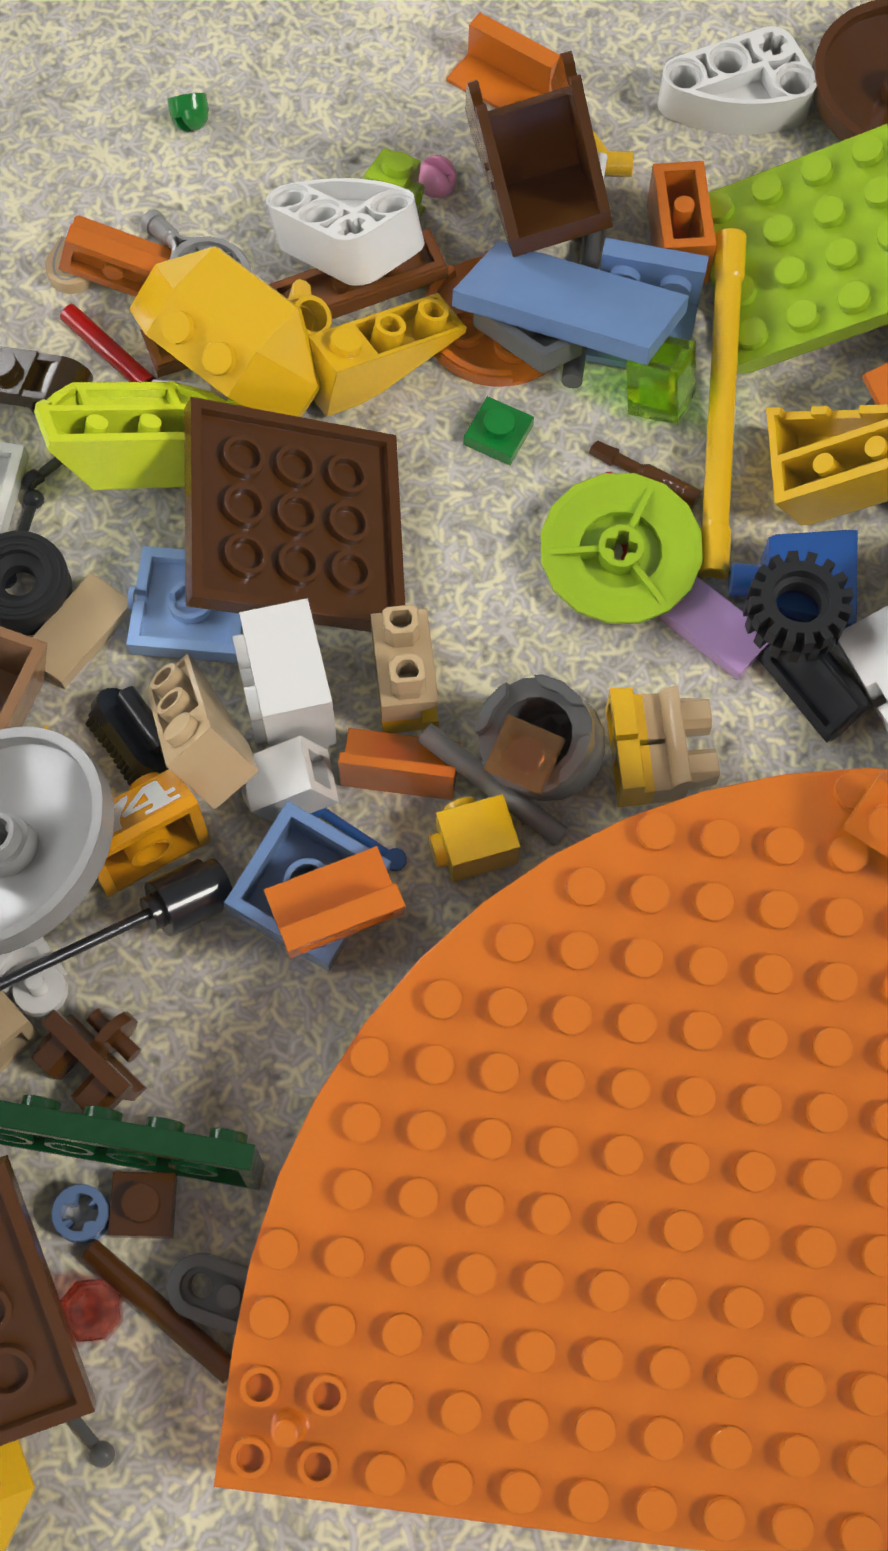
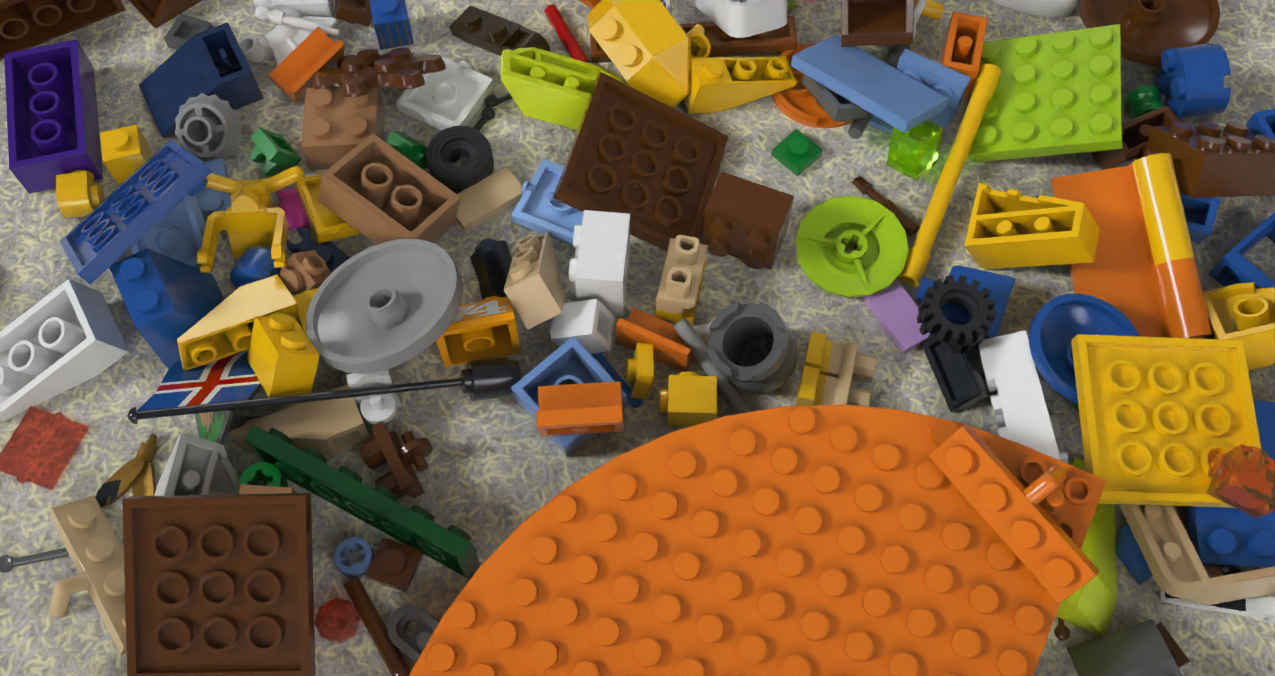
camera: 20 degrees right, 5 degrees down
(392, 817) = (640, 370): none -> yellow plate
(468, 556) = (746, 221): none -> reddish brown brick
(524, 754) = (735, 350): clear orange plate -> none

